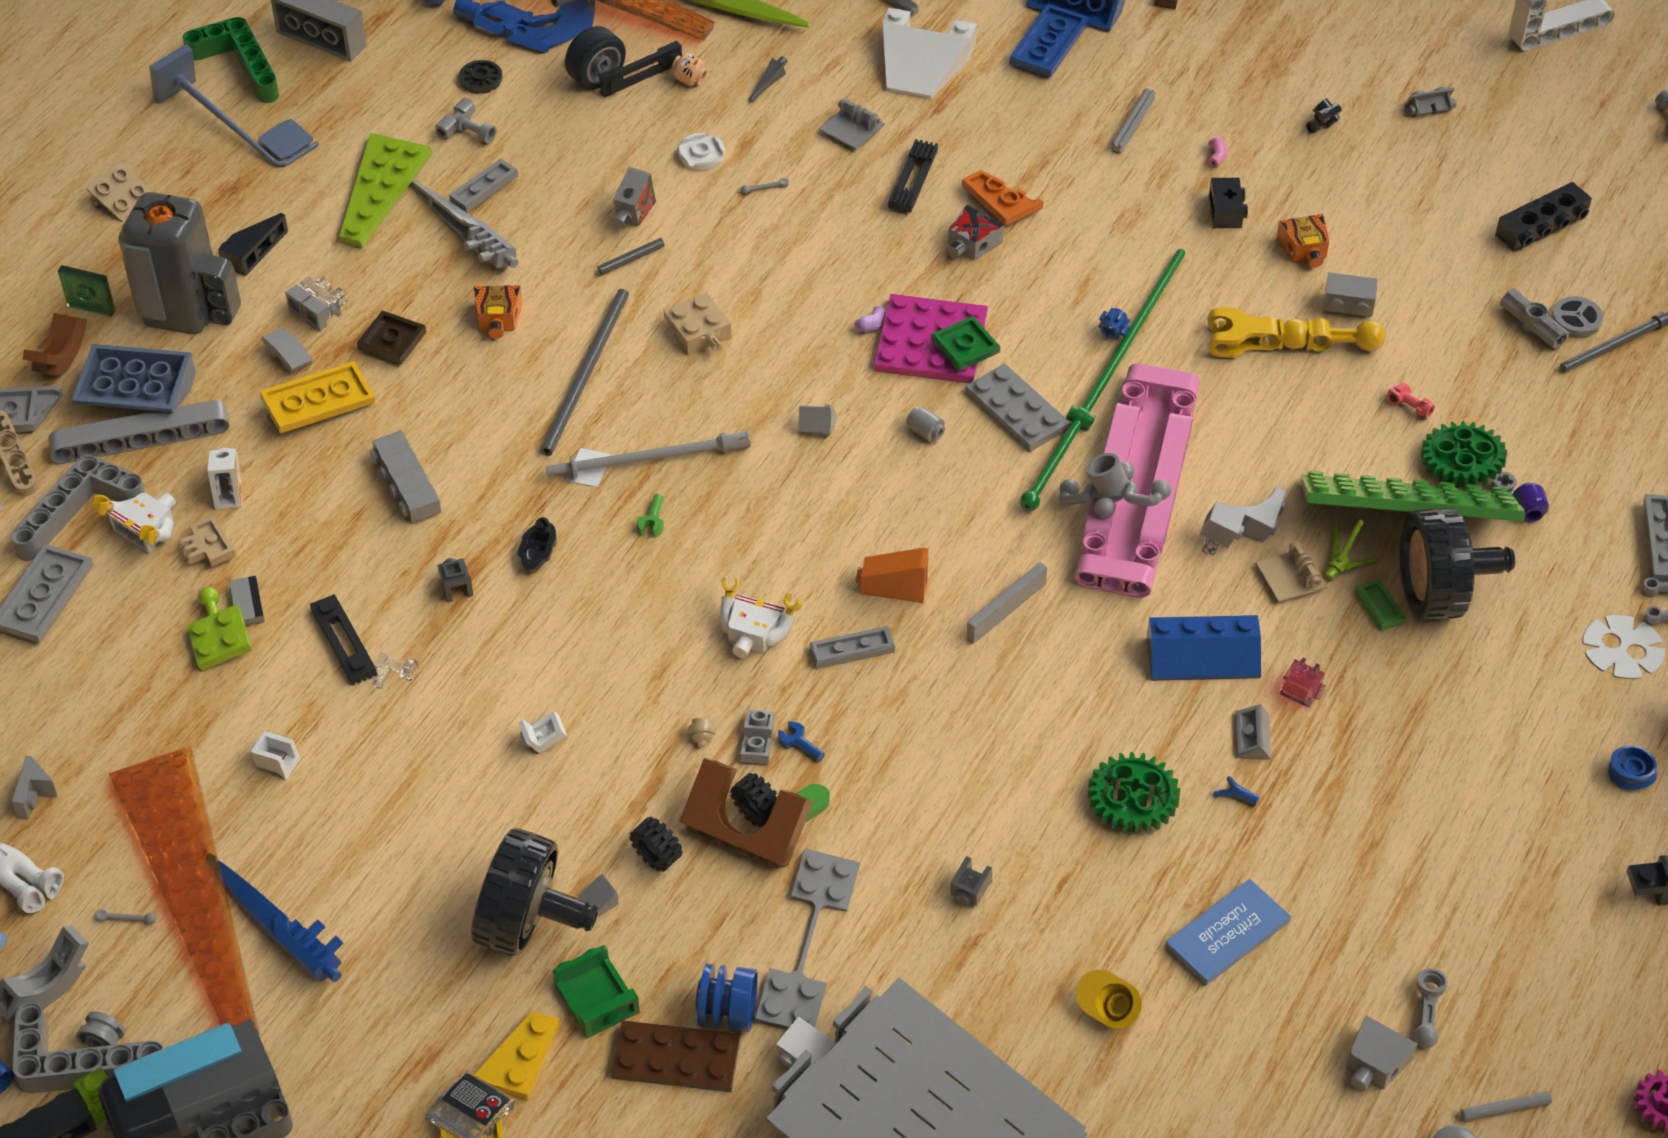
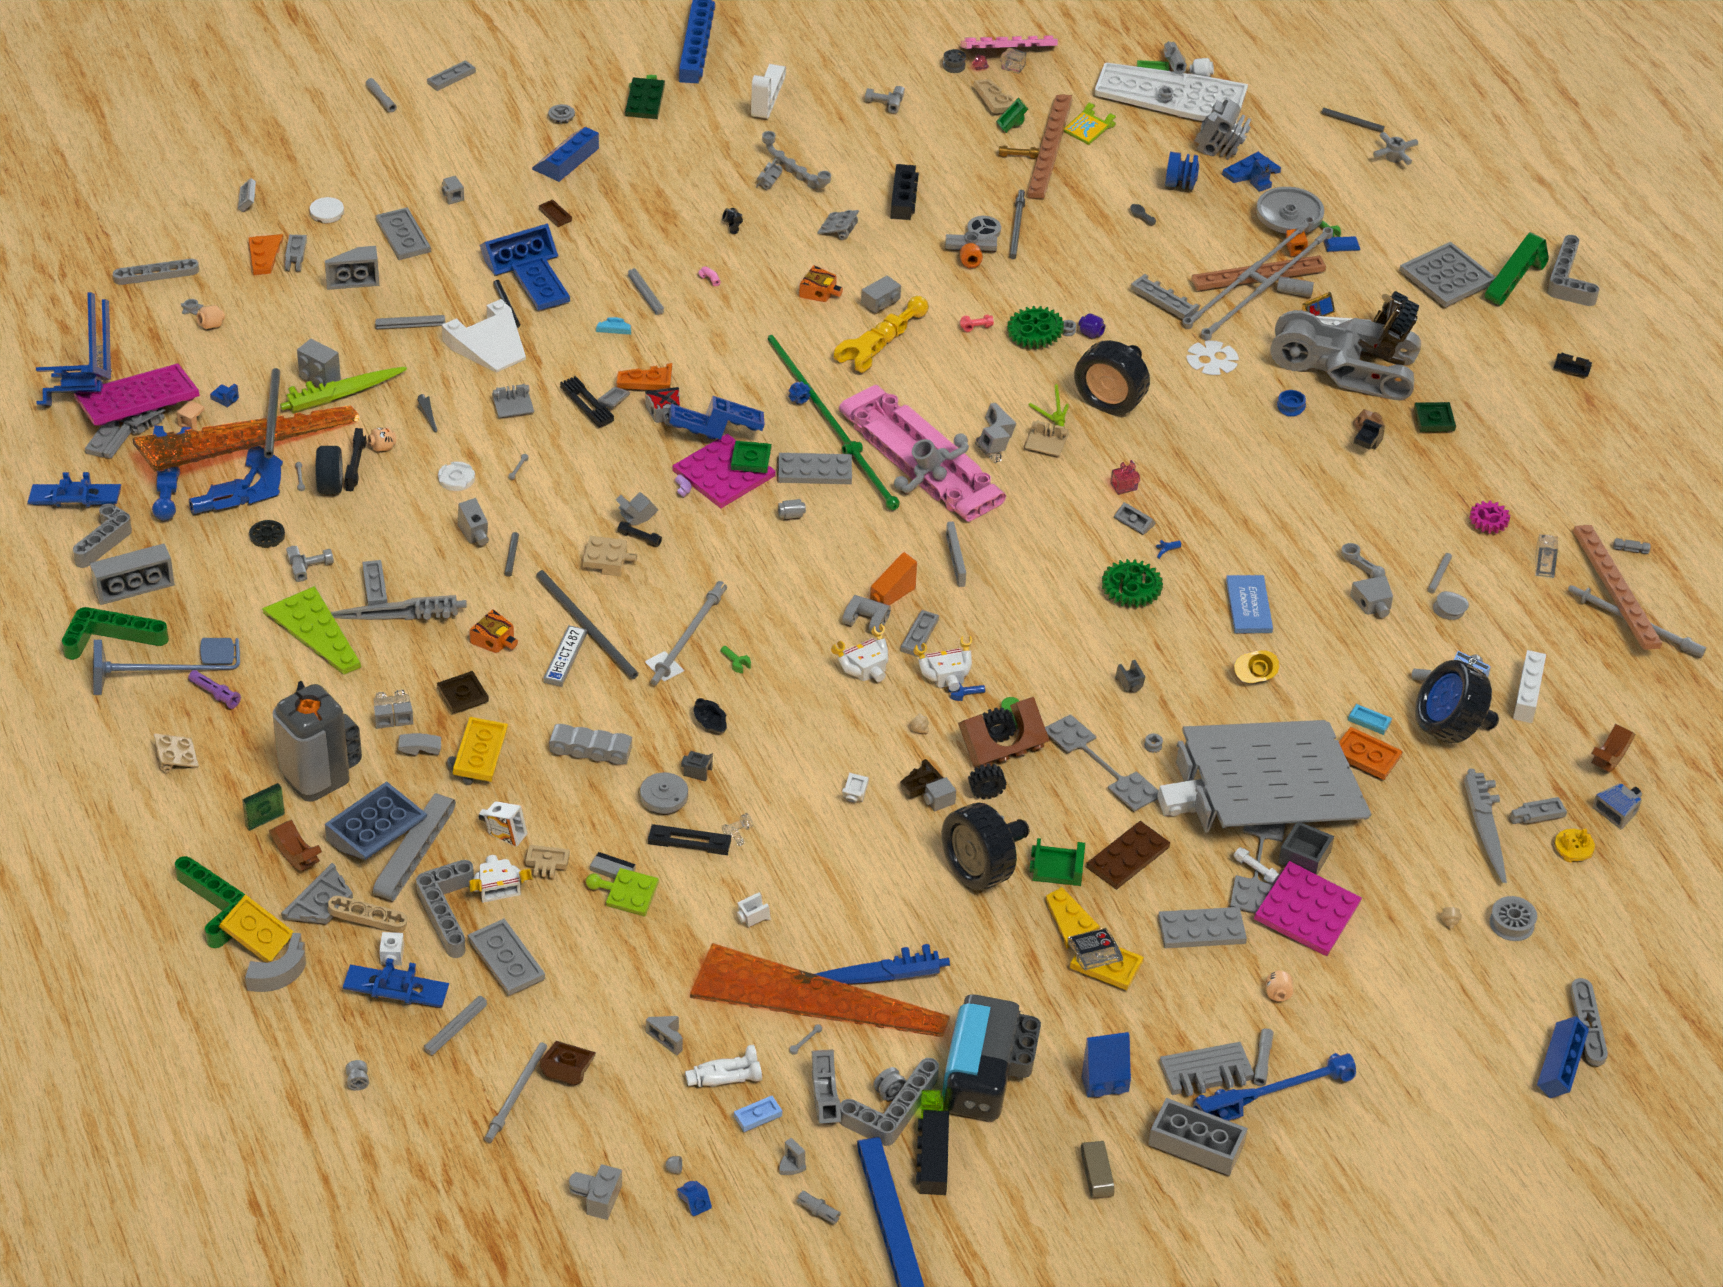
camera: 55 degrees left, 5 degrees down
(228, 173) = (220, 692): none -> medium lavender pin
(387, 576) = (664, 792): none -> light grey wheel
(522, 382) = (565, 656): none -> tile
(603, 814) = (940, 794): none -> light grey brick
(613, 785) = (918, 779): none -> dark brown wing
(727, 997) = (1120, 807): blue wheel -> none
(757, 737) = (944, 705): light grey slope -> none
(764, 343) = (625, 529): none -> black bar
(788, 307) = (637, 510): none -> light grey brick
(813, 700) = (946, 667): none -> white torso
(817, 418) = (739, 549): light grey tile -> none
(836, 569) = (859, 605): none -> light grey connector
(884, 978) = (1153, 747): none -> light grey bush
(940, 190) = (613, 397): none -> light grey tile
(987, 279) = (716, 418): none -> blue bracket
(992, 37) = (503, 296): none -> black bar
(1054, 129) = (614, 325): none -> medium azure tile
(1204, 647) = (1064, 500): blue slope -> none
(1226, 202) = (756, 296): black brick -> none
(1380, 604) = (1099, 422): bright green tile -> none
(1409, 497) = (1053, 360): bright green plate -> none
(1427, 200) = (840, 222): none -> light grey hinge
(1469, 137) = (814, 181): none -> light grey bar
(1512, 330) = (971, 255): none -> orange head

